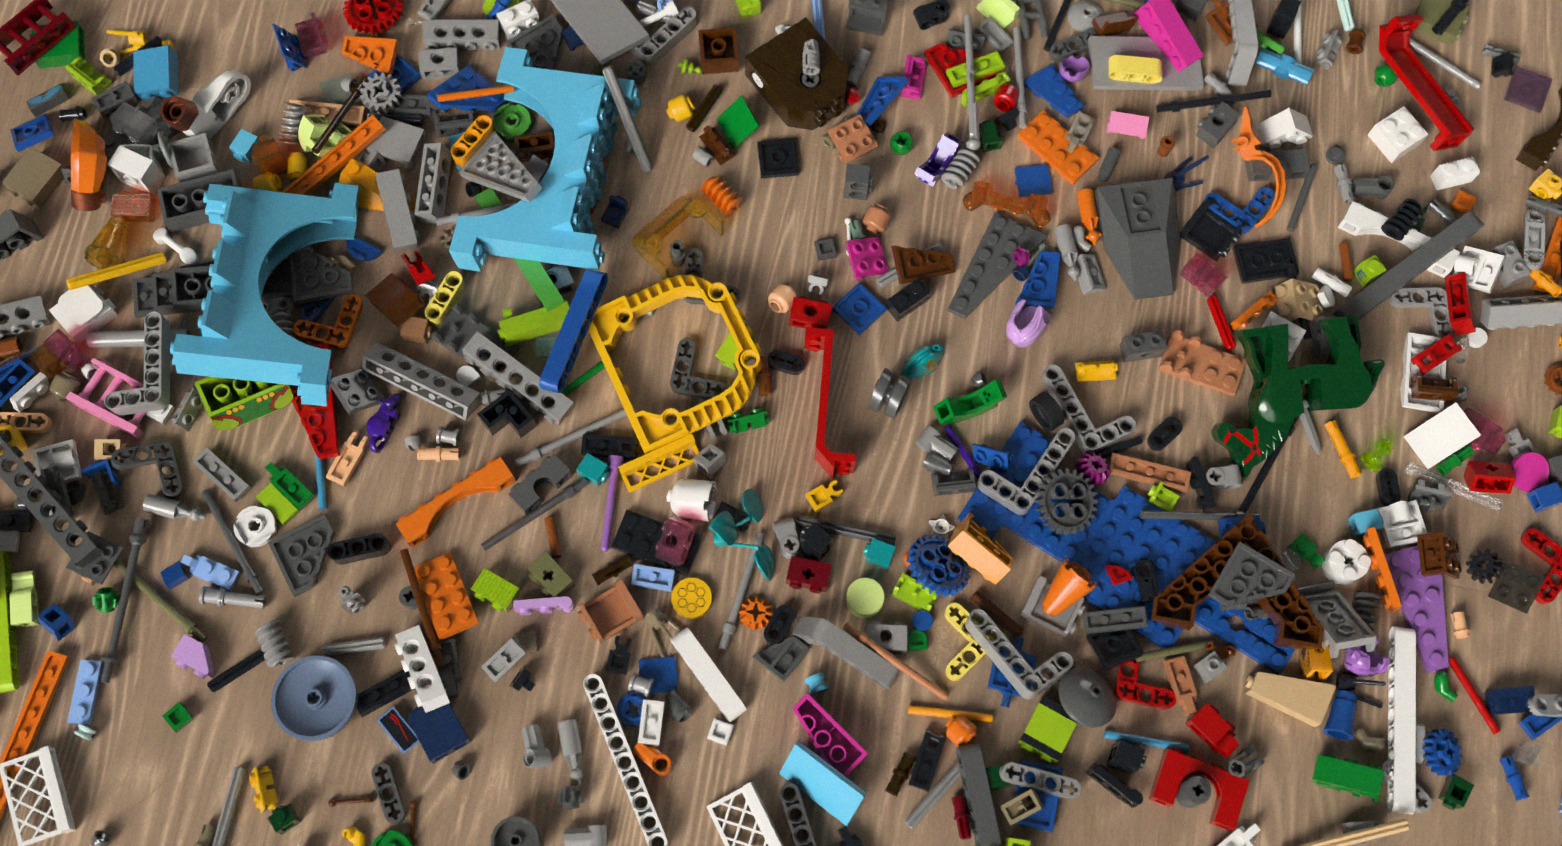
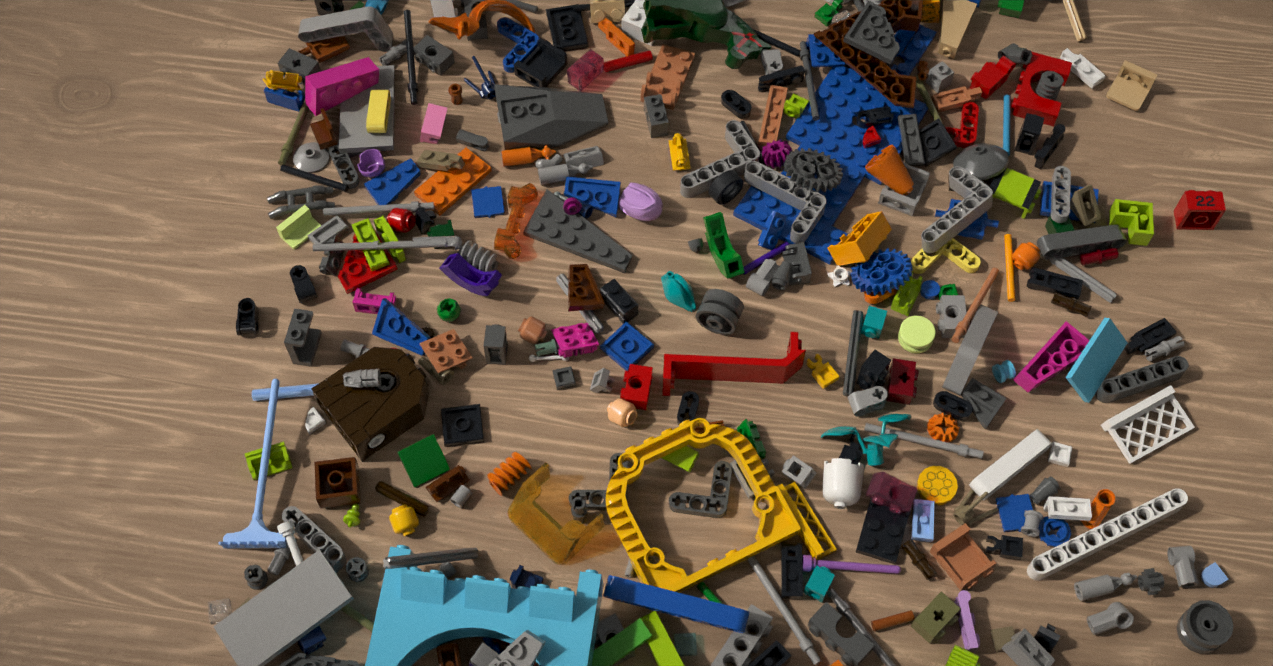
camera: 90 degrees left, 10 degrees down
(997, 614) = (915, 231): reddish brown axle -> none

